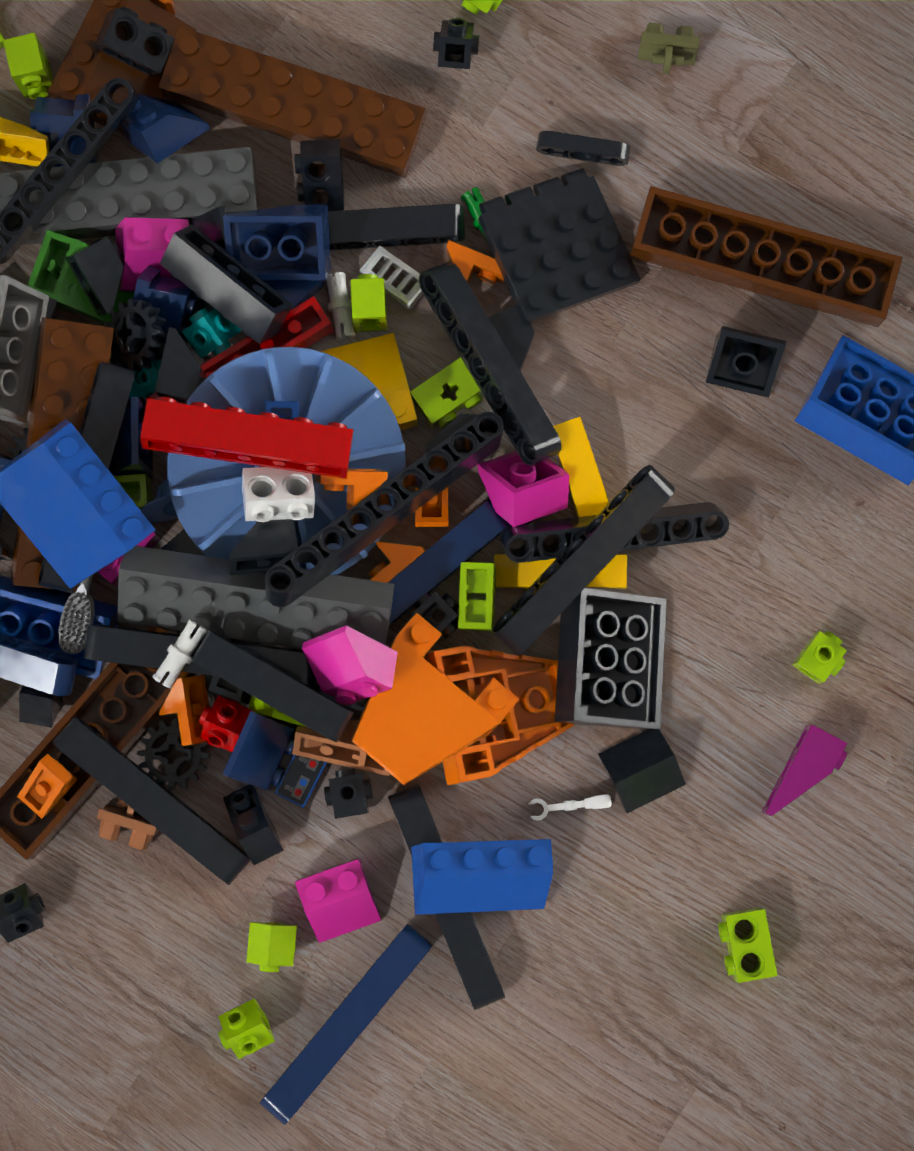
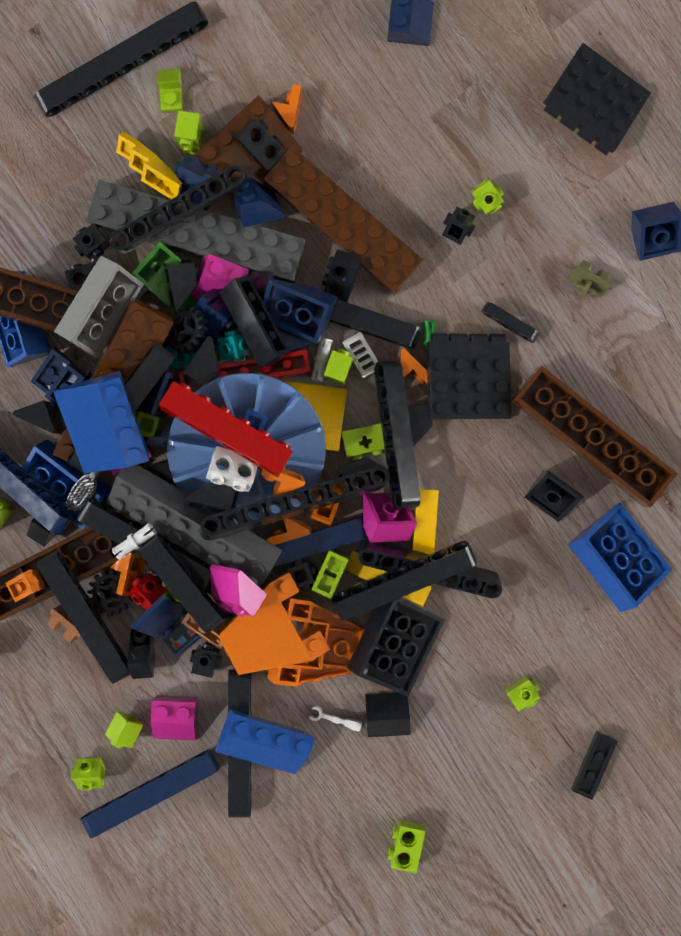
camera: 20 degrees right, 5 degrees up
(808, 764) = (487, 755): magenta slope -> none

